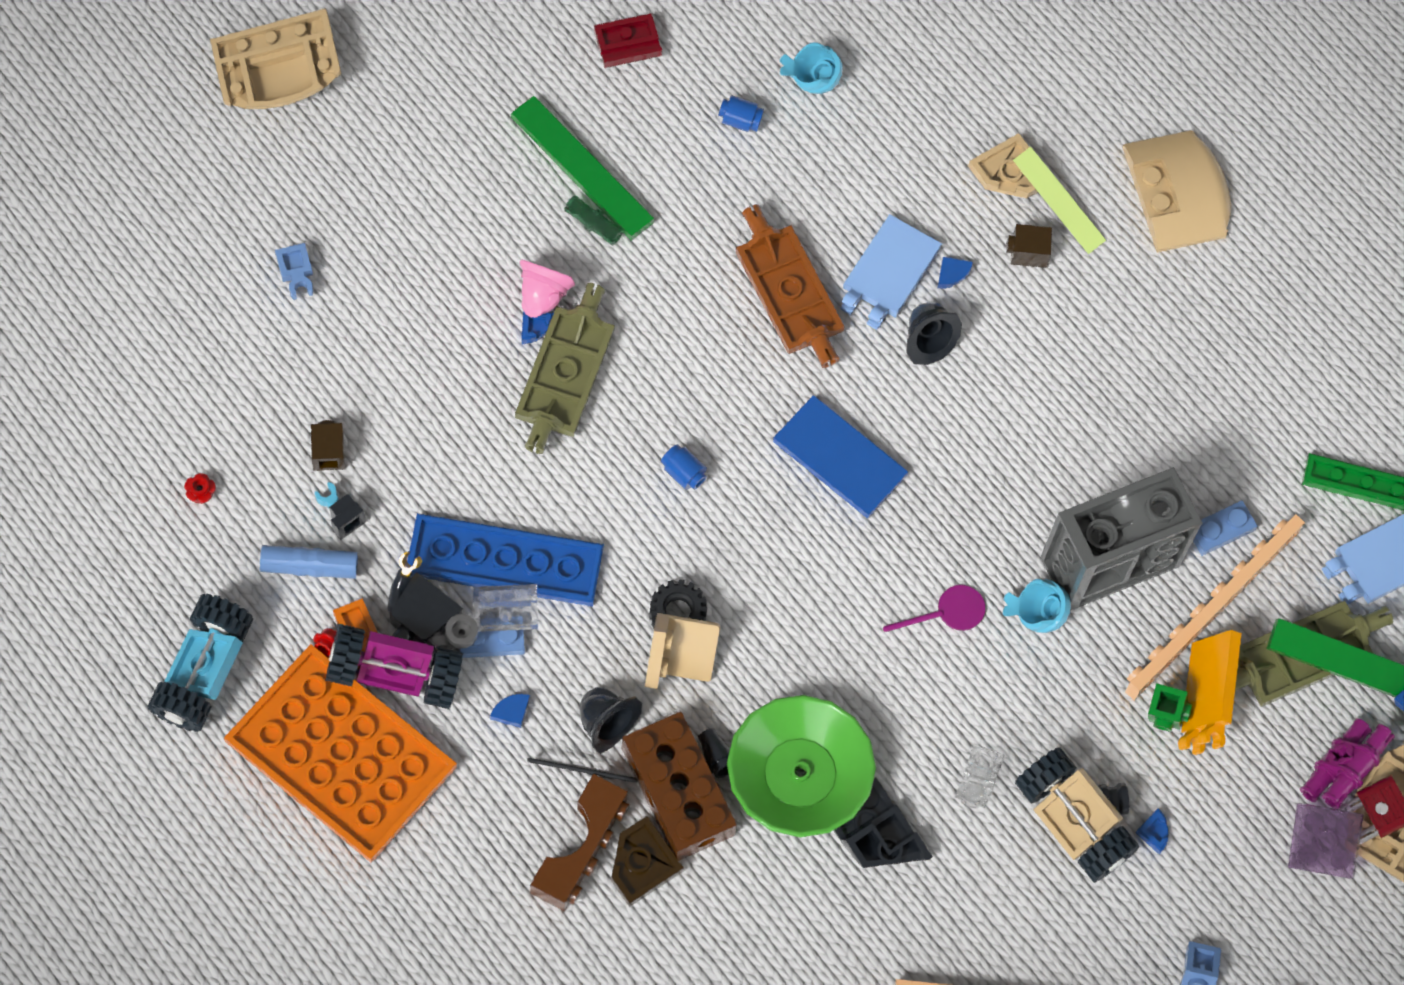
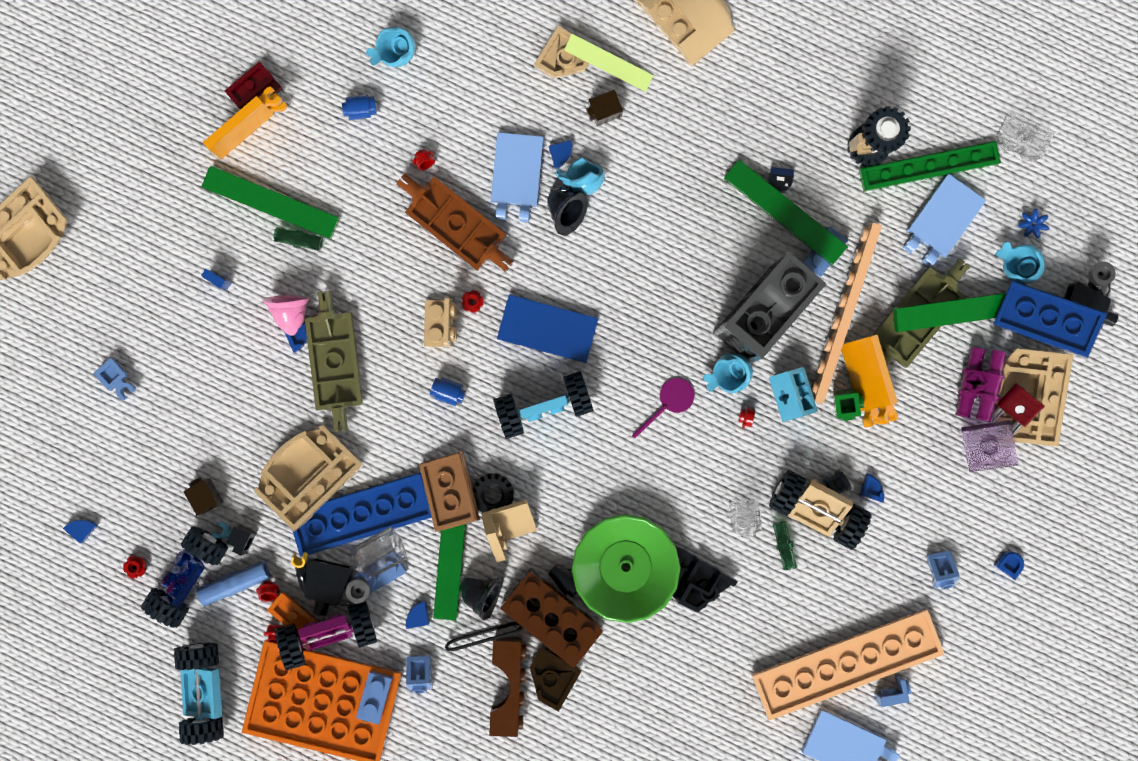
camera: 20 degrees left, 20 degrees up
(159, 416) = (80, 529): none -> blue tile
(216, 538) = (177, 583): none -> plate
(340, 595) = (268, 591): none -> red plate
(411, 772) = (374, 697): none -> medium blue plate
(465, 478) = (305, 475): none -> tan slope
(475, 217) = (216, 279): none -> blue tile
(477, 777) = (418, 674): none -> medium blue bracket
(593, 652) = (449, 573): none -> green tile
(600, 67) = (244, 123): none -> light orange tile
(627, 579) = (449, 491): none -> medium nougat tile
(714, 387) = (439, 323): none -> tan bracket
(765, 391) = (468, 296): none -> red plate
(787, 203) = (423, 159): none -> red plate
(794, 534) = (510, 418): none -> black plate
(969, 304) = (583, 176): none -> medium azure hat
(1012, 844) = (784, 545): none -> clear green pin
(1036, 669) = (747, 417): none -> red plate
(1106, 665) = (793, 394): none -> medium azure brick
(1194, 458) = (785, 212): none -> green tile
(1206, 421) = (781, 178): none -> tile
(1342, 412) = (878, 136): none -> black plate

